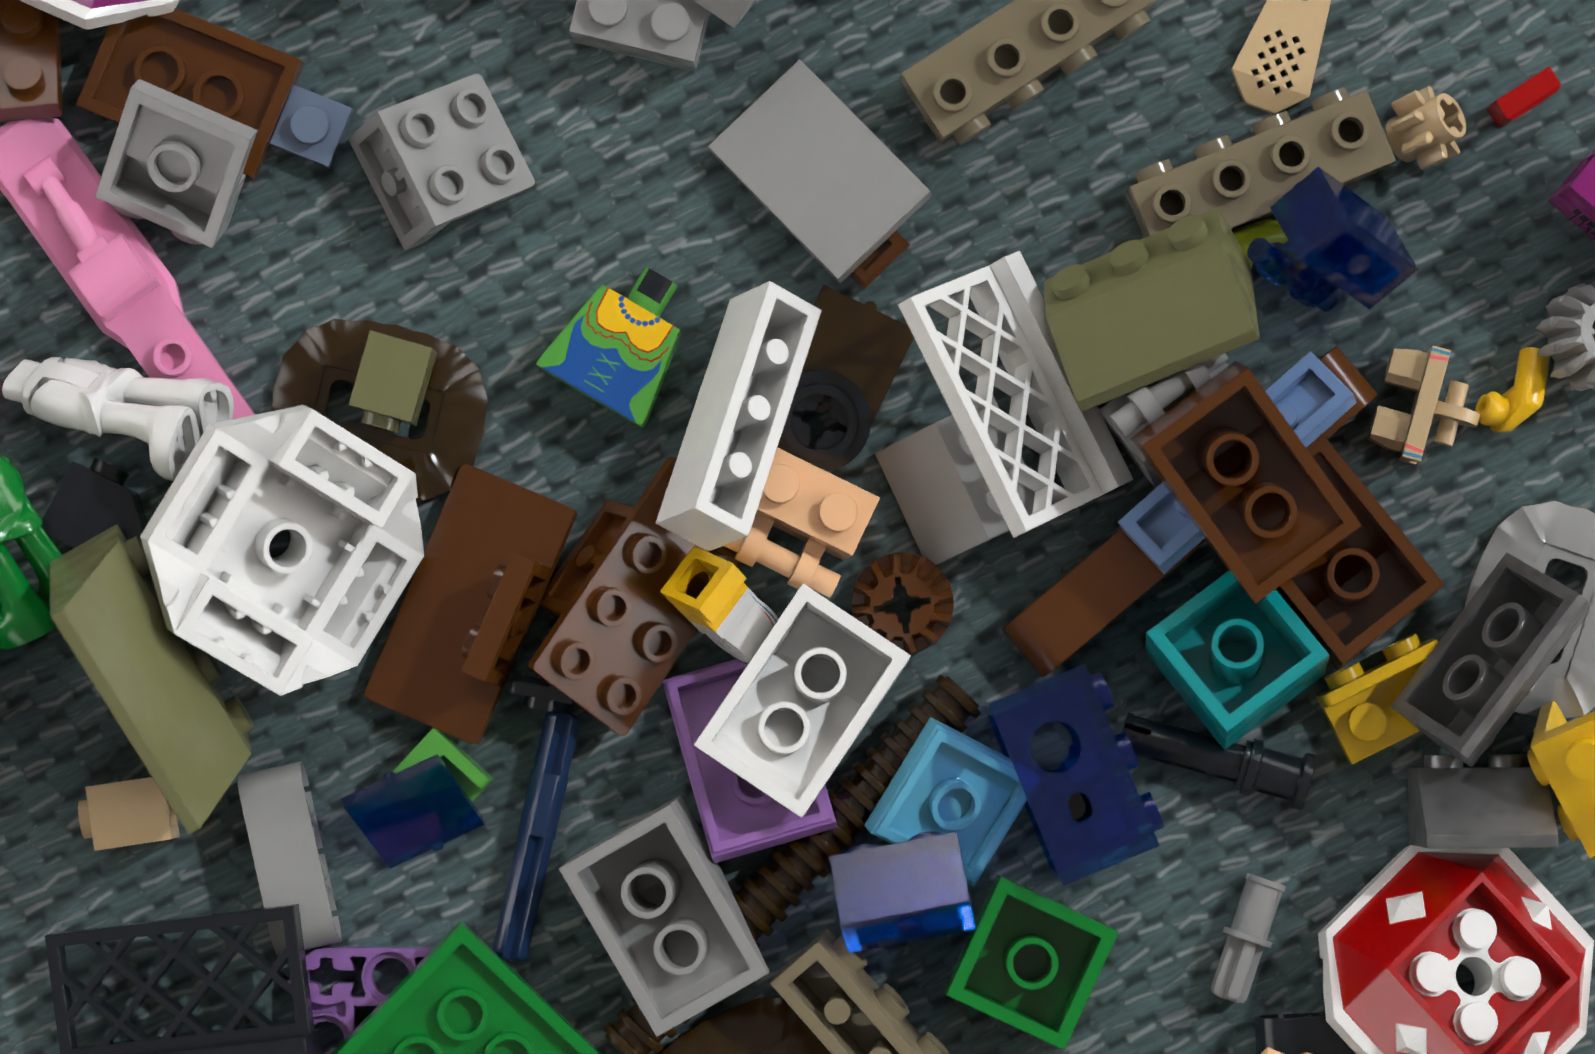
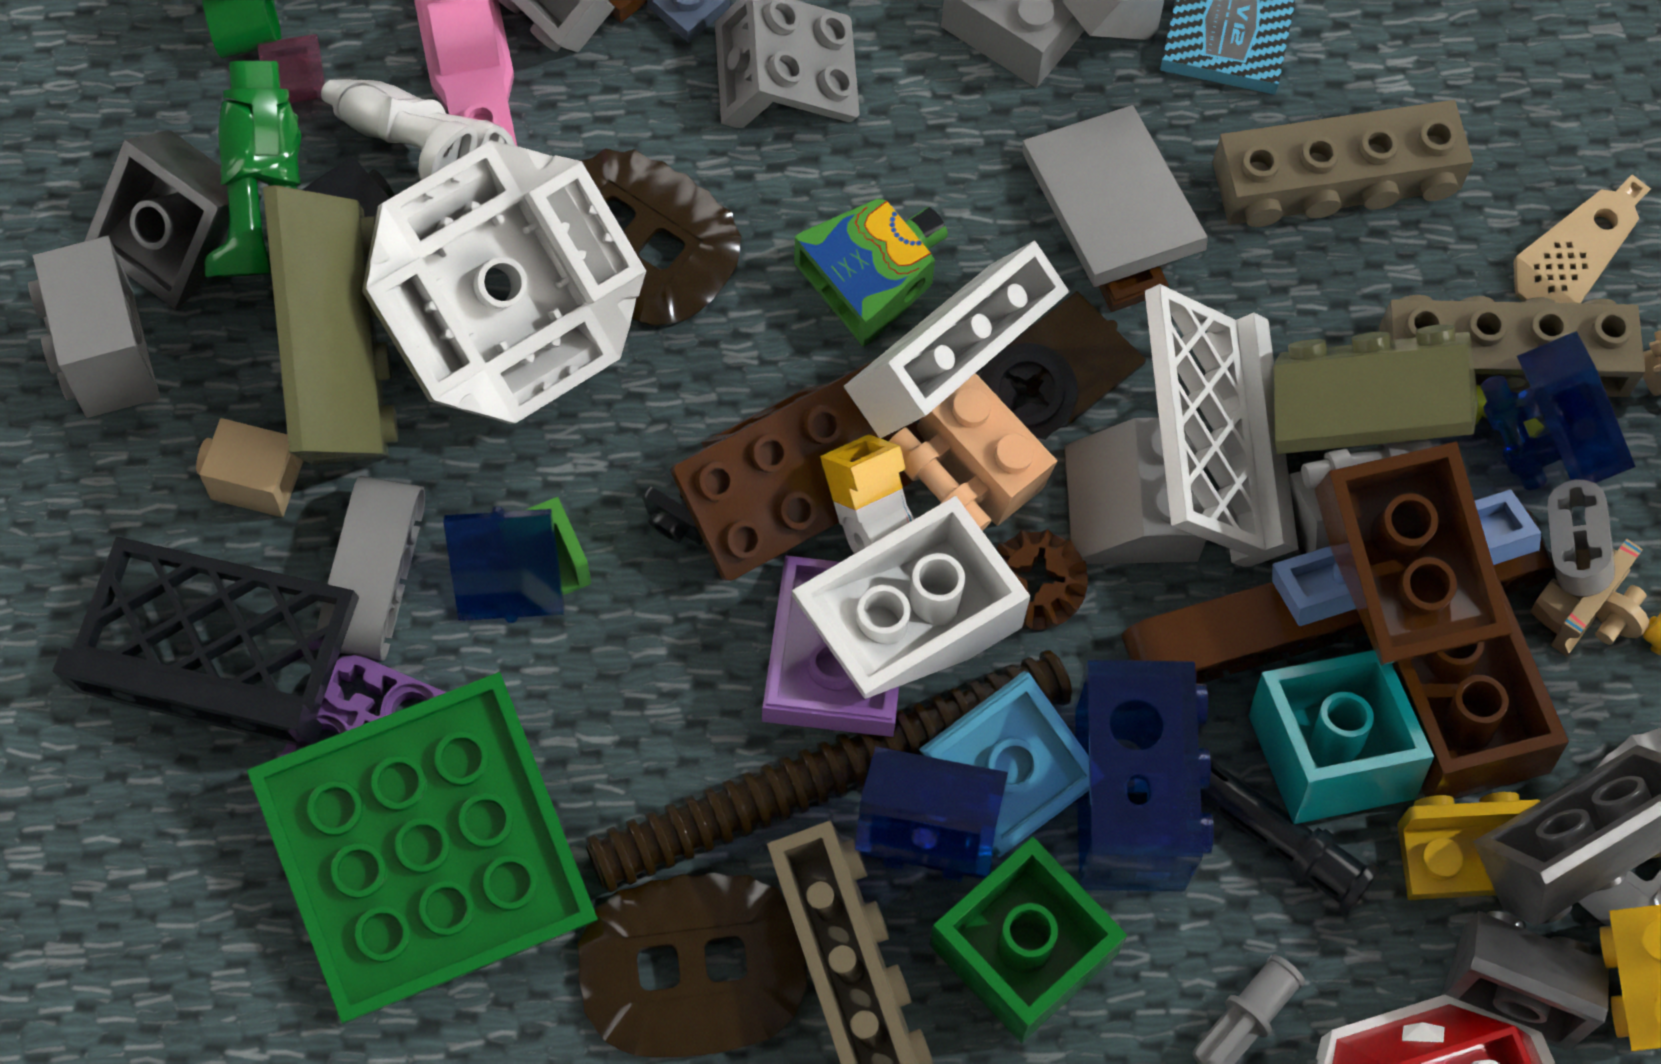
camera: 25 degrees right, 20 degrees down
(392, 381) = (662, 200): olive brick -> none
(470, 604) = (641, 420): reddish brown bracket -> none
(536, 835) = (606, 643): dark blue axle -> none
(666, 915) = (694, 743): light grey slope -> none
(1376, 368) = (1592, 536): none -> light grey beam

